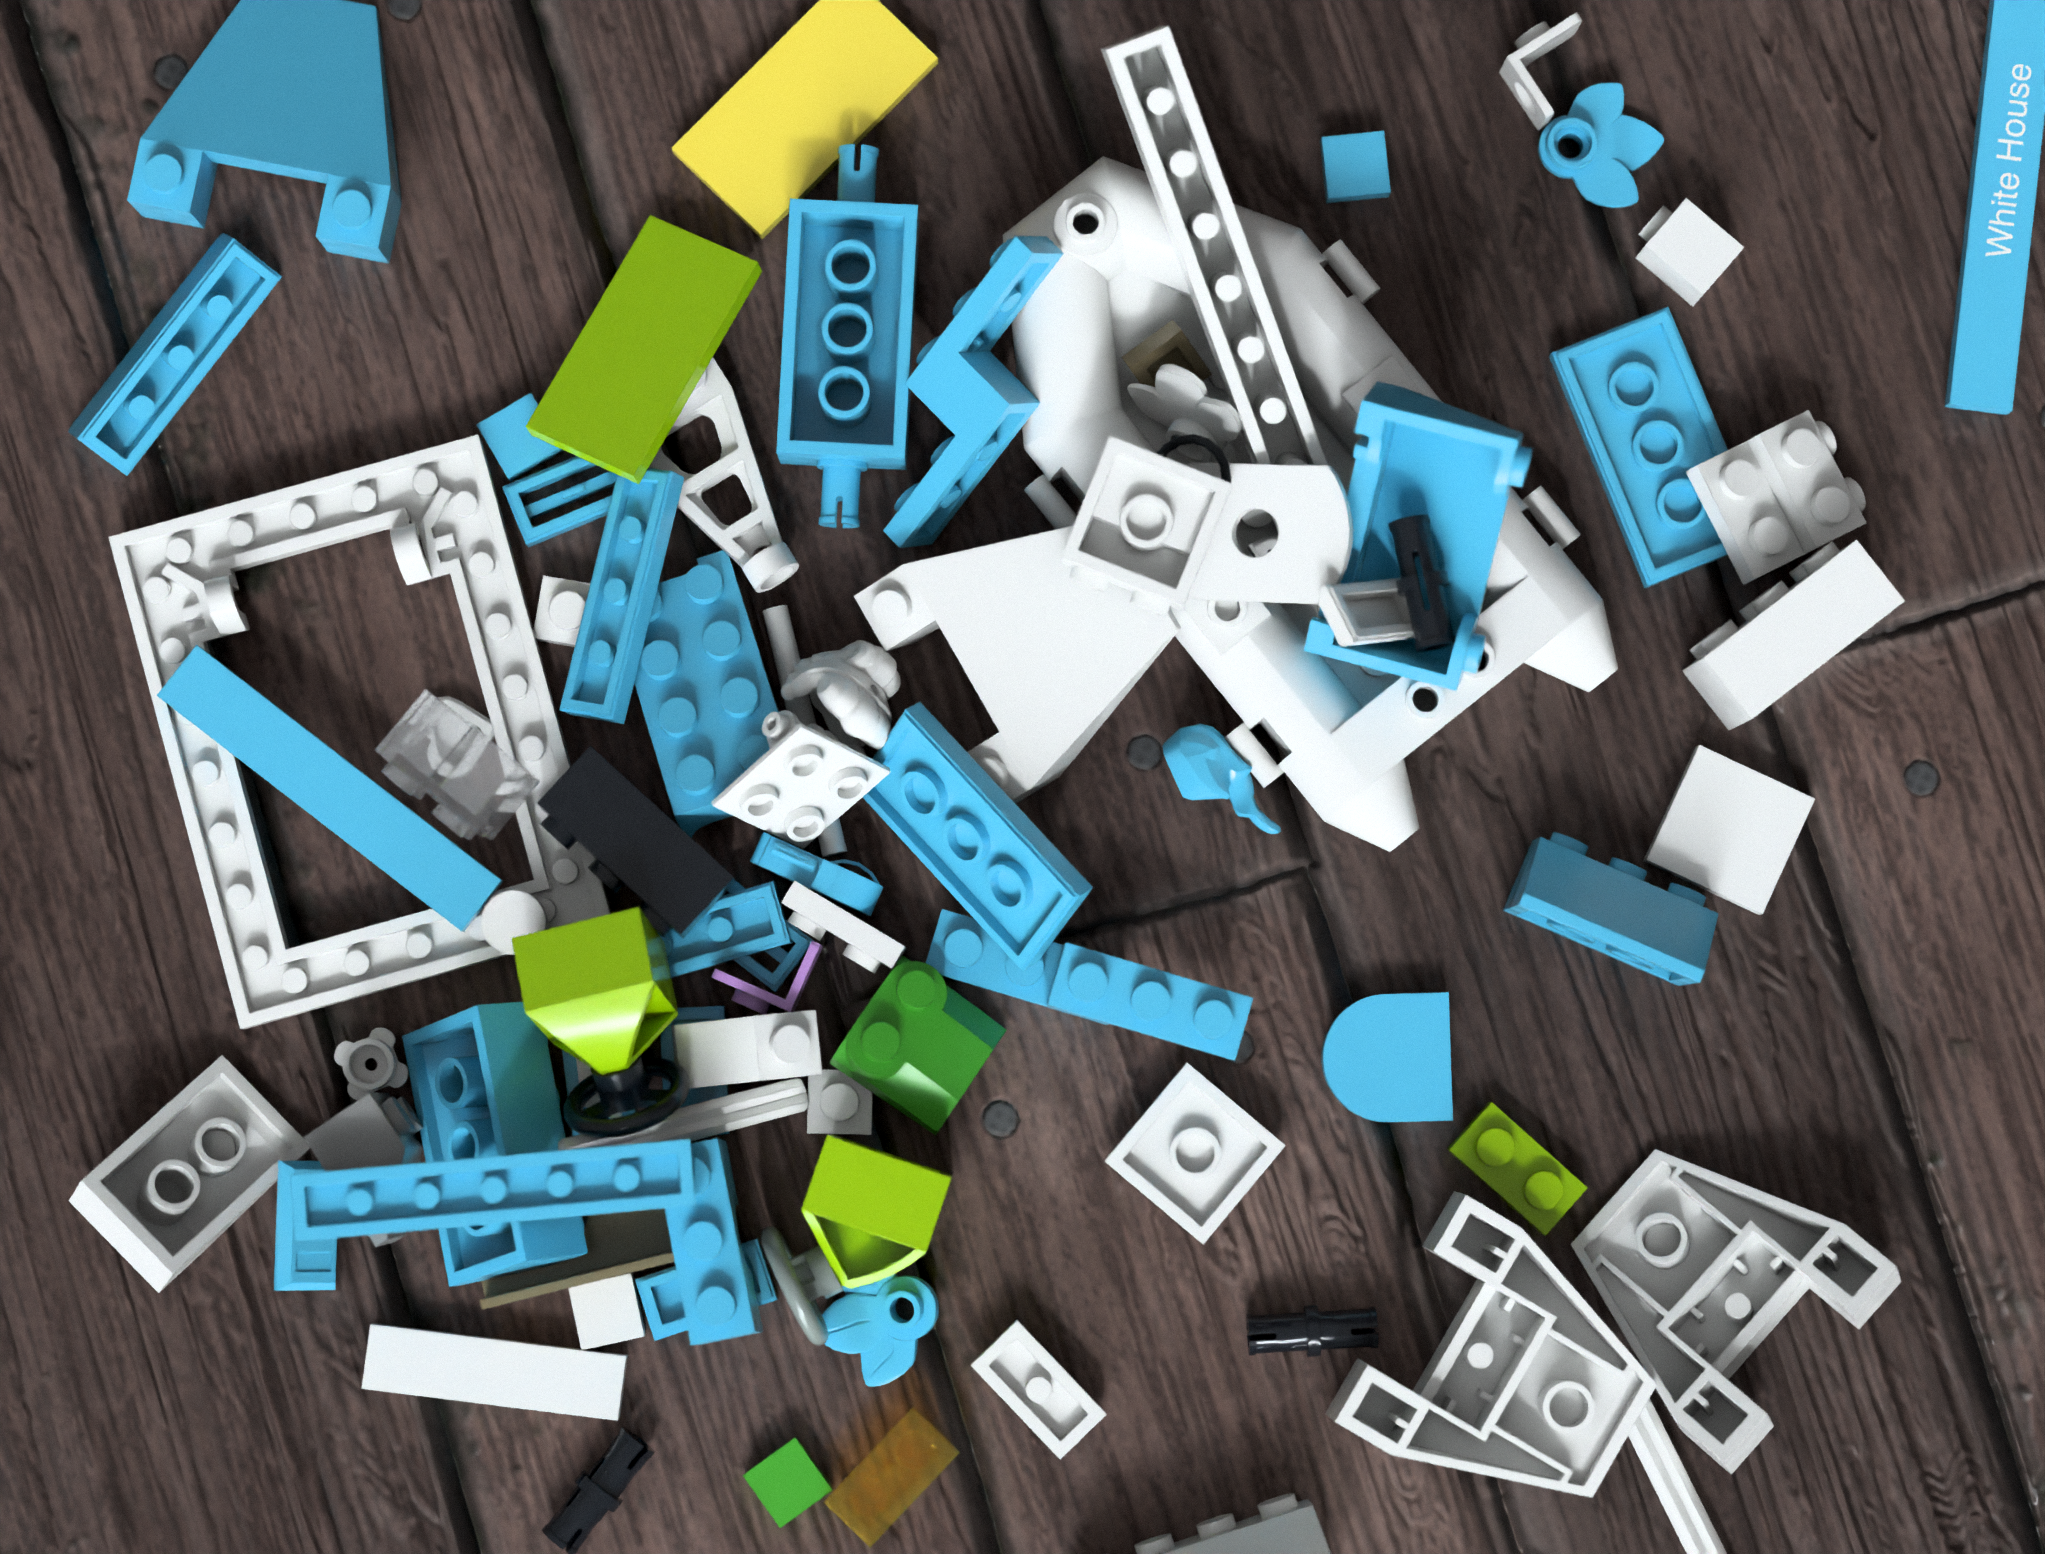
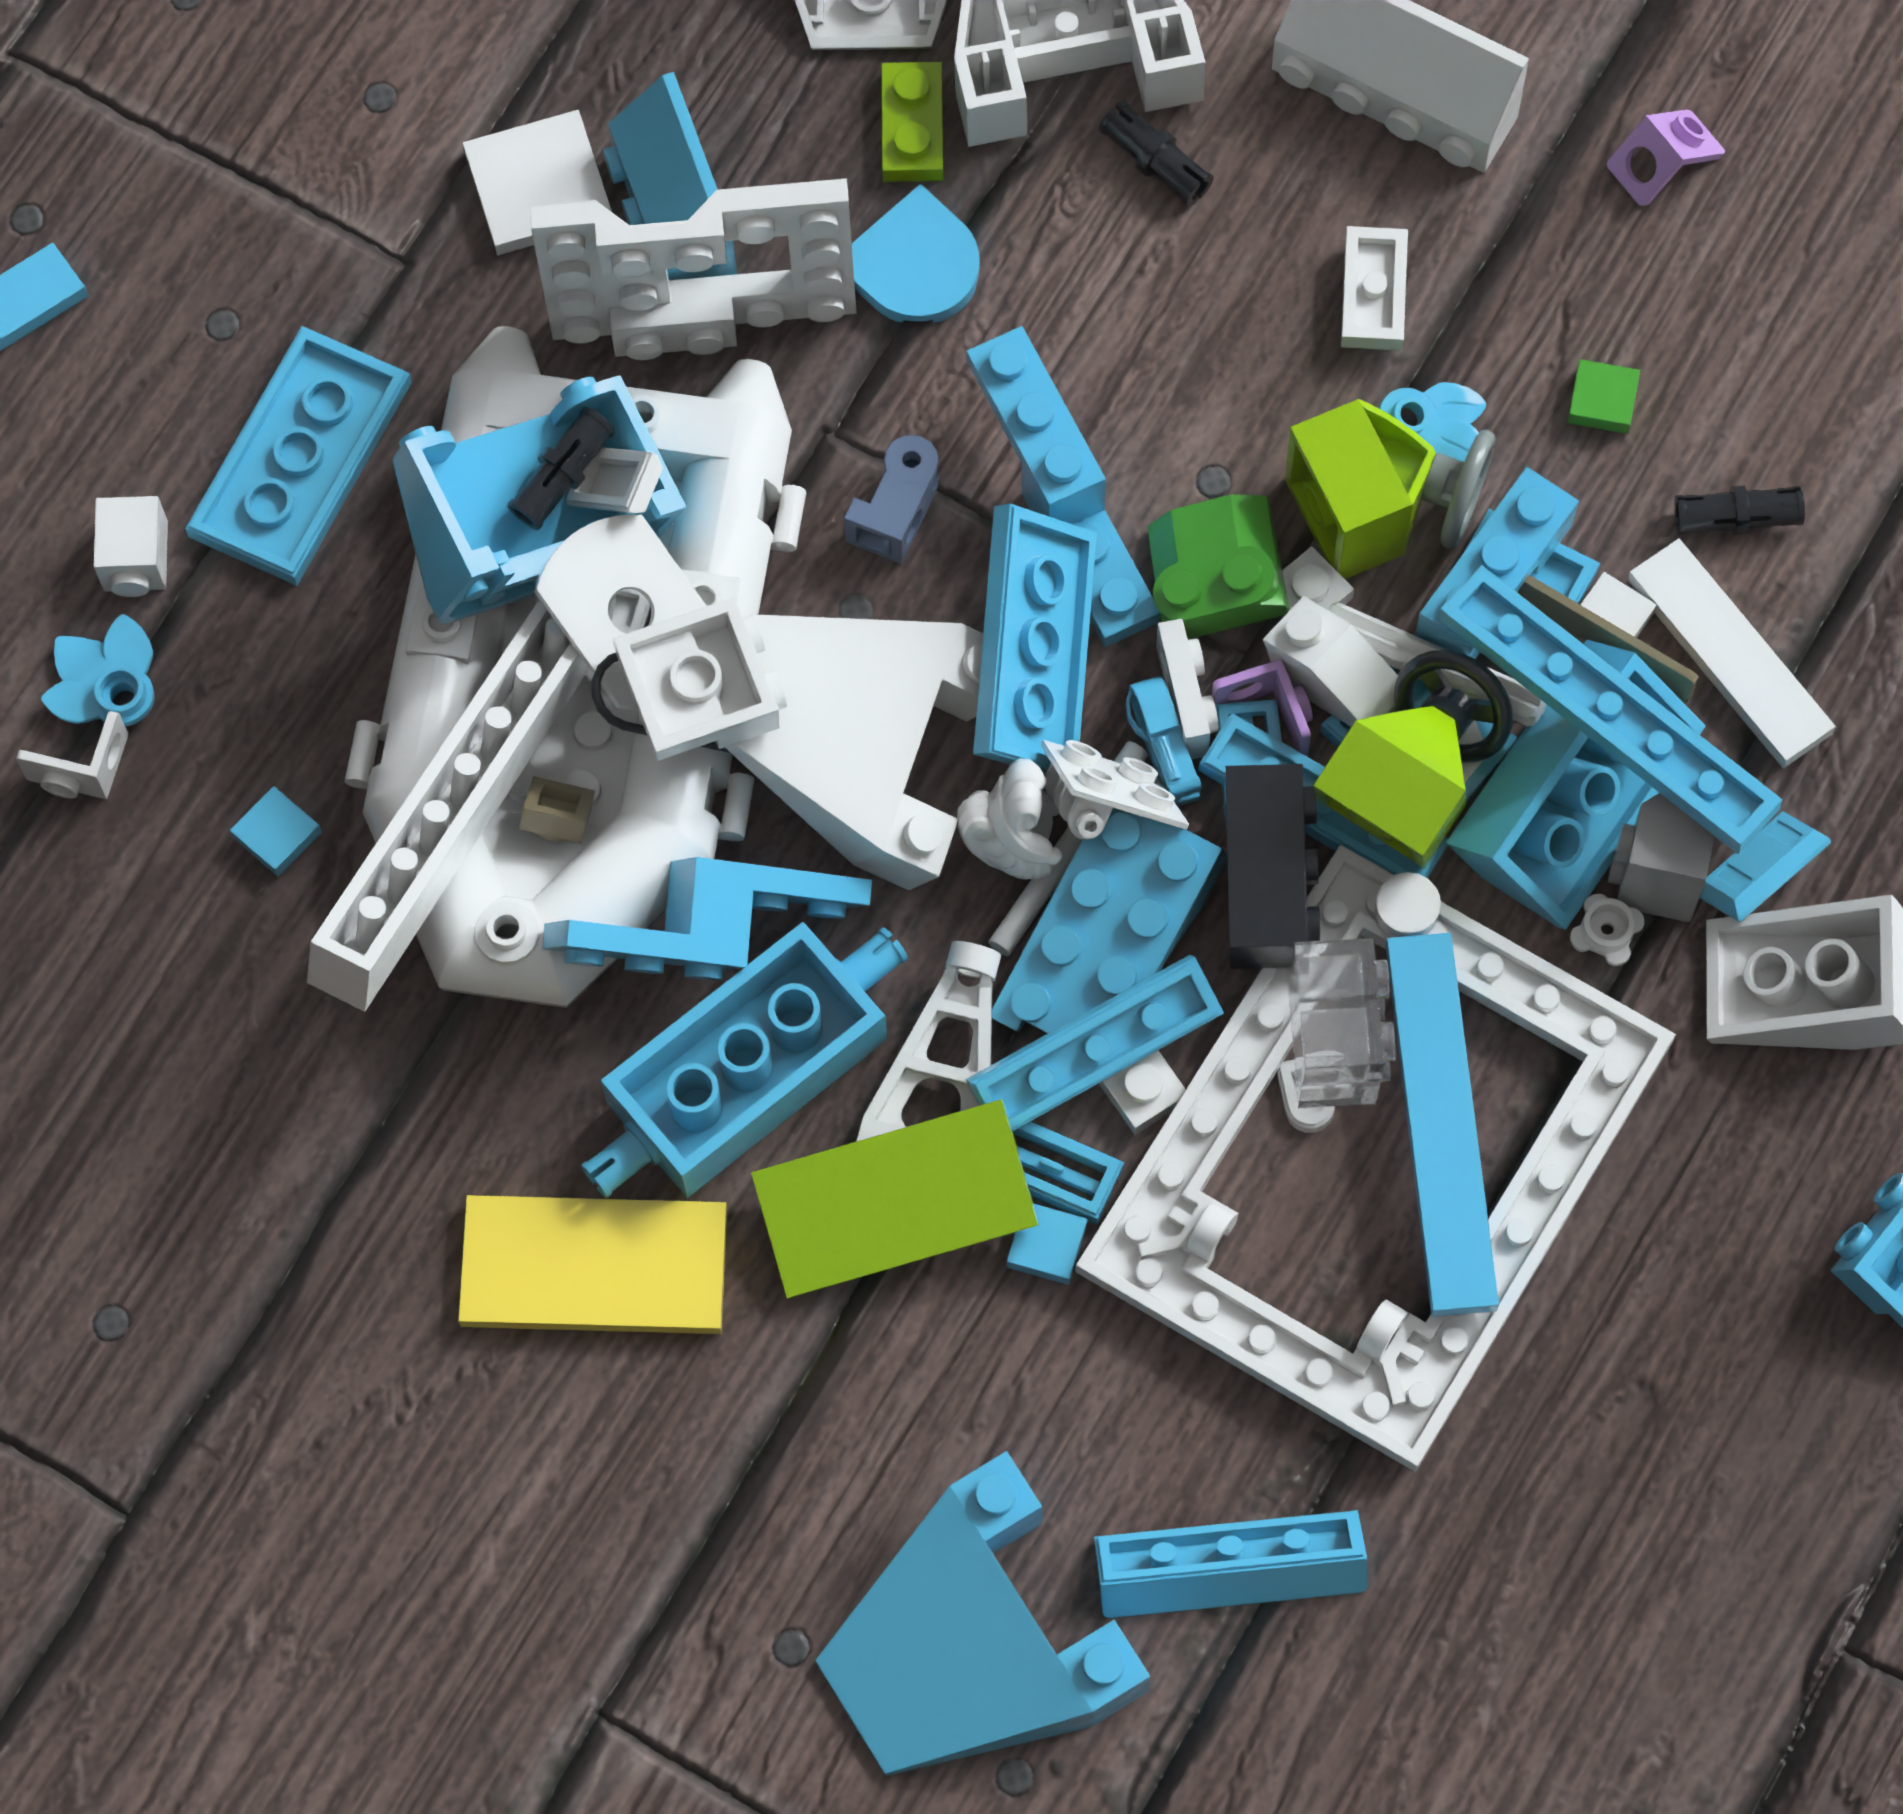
camera: 125 degrees left, 15 degrees down
(891, 1476) = (1530, 329): clear yellow plate -> none
(1184, 407) = (581, 753): white plate -> none
(1194, 1153) = (1110, 326): white plate -> none
(1205, 880) = (899, 503): none -> sand blue leg
(1211, 769) = (827, 534): medium azure piece -> none
(1505, 839) = (615, 278): none -> white piece
(1778, 496) = (261, 336): white plate -> none
(1790, 632) = (360, 236): white brick -> none

